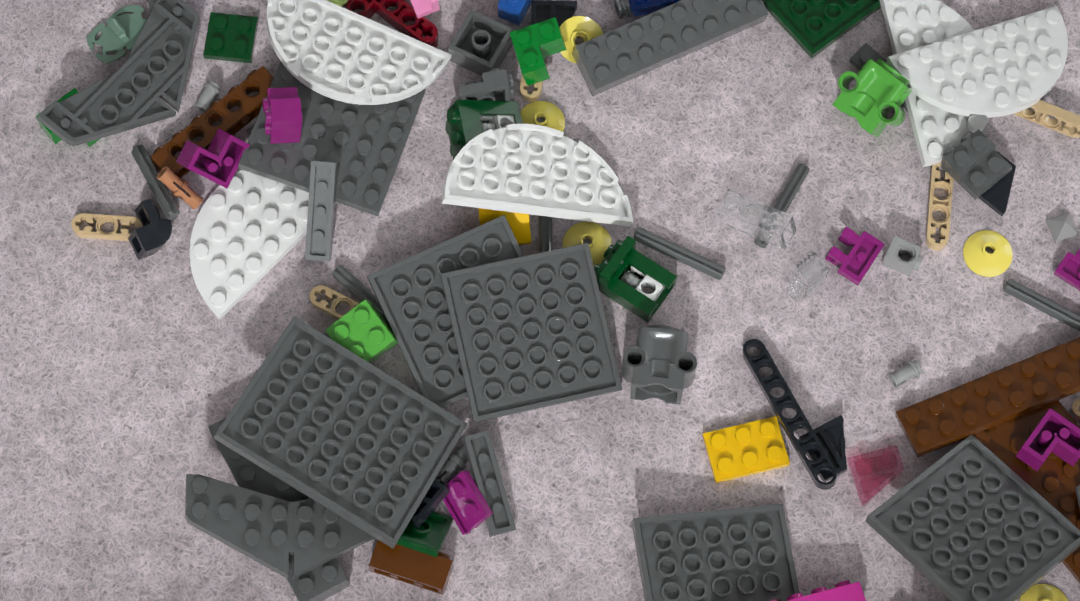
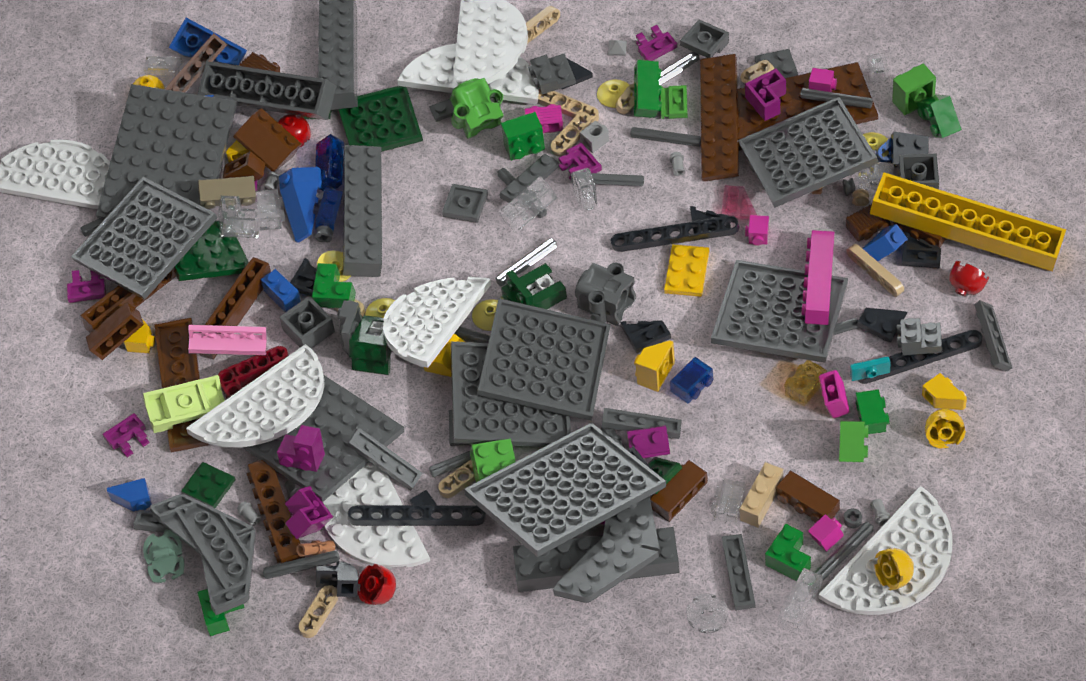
camera: 60 degrees left, 15 degrees down
(154, 276) = (376, 585): none -> red cylinder
(261, 266) = (407, 520): none -> black beam
(291, 279) = (422, 499): none -> black tile
(575, 466) = (654, 365): none -> yellow slope
(577, 519) = (692, 380): none -> clear blue brick
(626, 436) = (645, 333): none -> black wing
(736, 146) = (465, 203): none -> dark grey plate
(802, 205) = (542, 167): none -> dark grey plate
(840, 513) = (757, 230): none -> dark pink brick
(843, 301) = (617, 179): none -> dark grey axle
(858, 171) = (523, 136): none -> green brick
(874, 228) = (572, 126): none -> tan beam
(903, 185) = (549, 117): none -> dark pink brick
(943, 342) = (665, 136): none -> dark grey axle
(981, 280) = (626, 97): none -> tan beam
(1001, 289) = (647, 89): none -> green brick
(1002, 331) = (674, 102): none -> bright green plate

